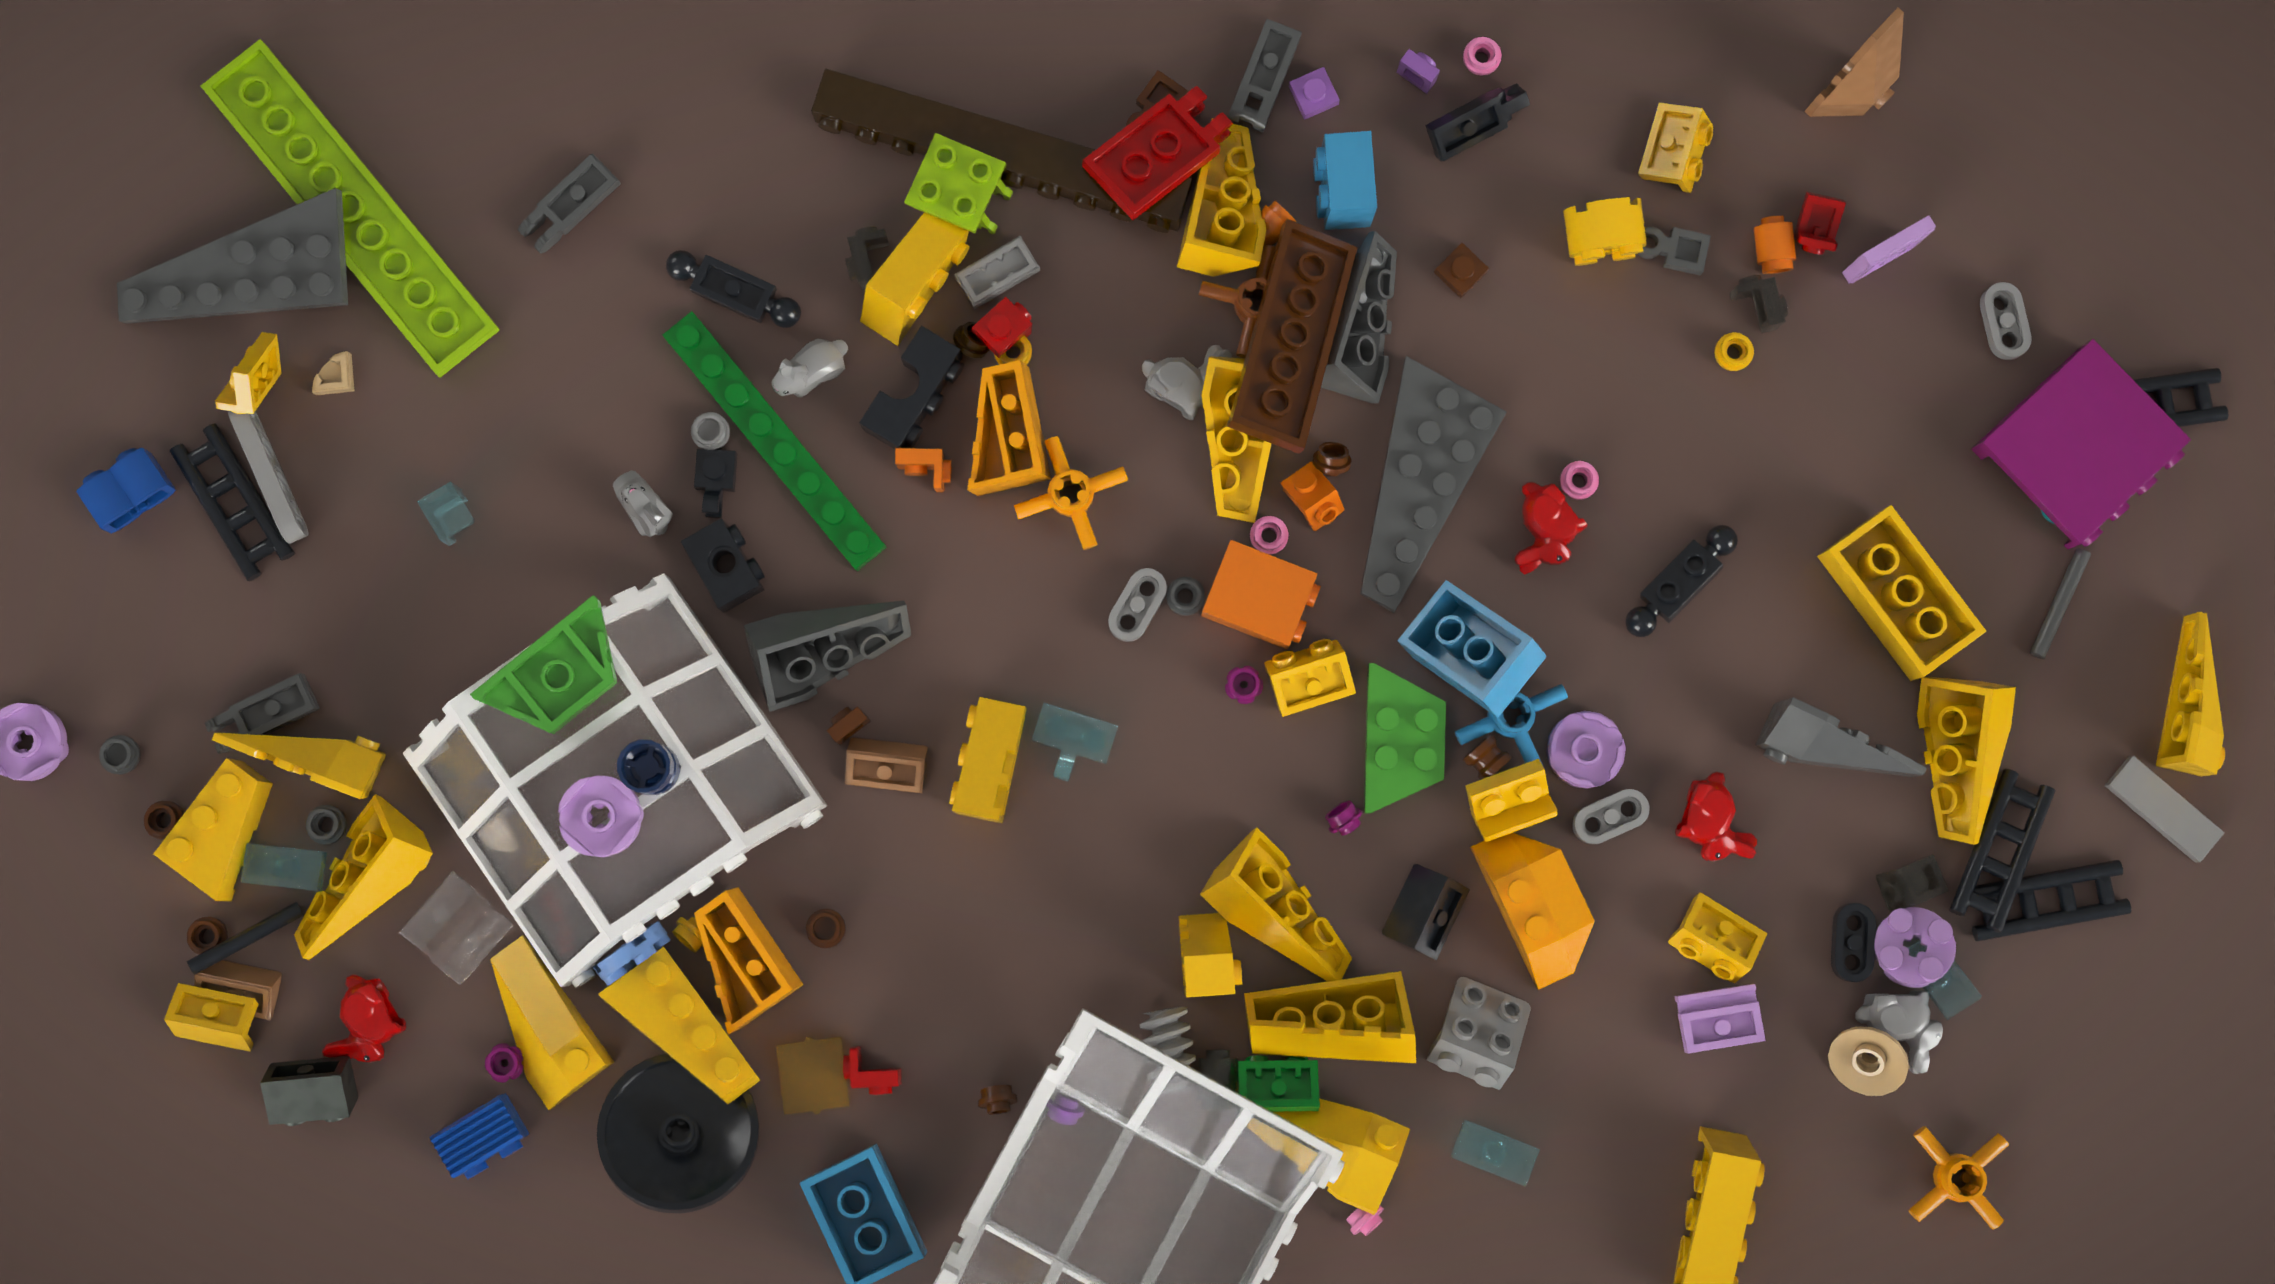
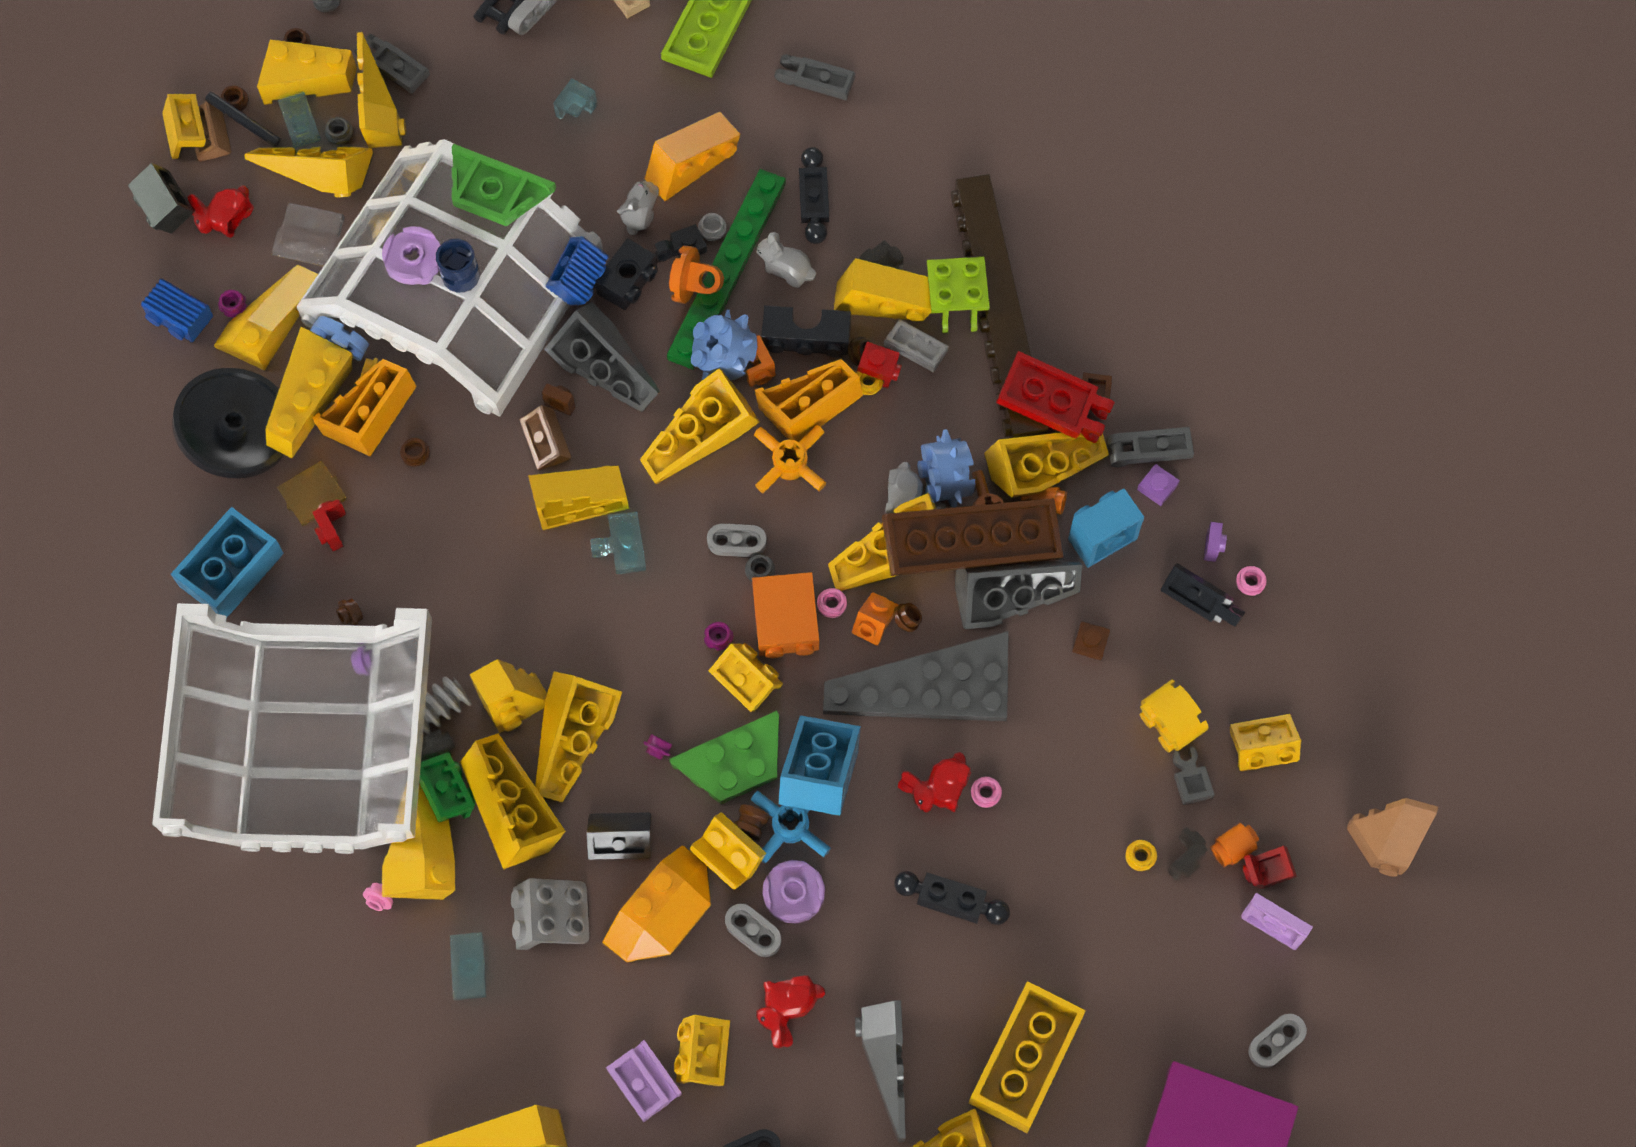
camera: 65 degrees right, 15 degrees down
(600, 406) = (690, 153): none -> light orange wedge
(702, 623) = (577, 271): none -> blue brick
(772, 491) = (688, 273): none -> orange tile
(891, 498) = (723, 345): none -> medium blue brick
(970, 565) = (704, 424): none -> yellow wedge
(1184, 320) = (946, 469): none -> medium blue brick

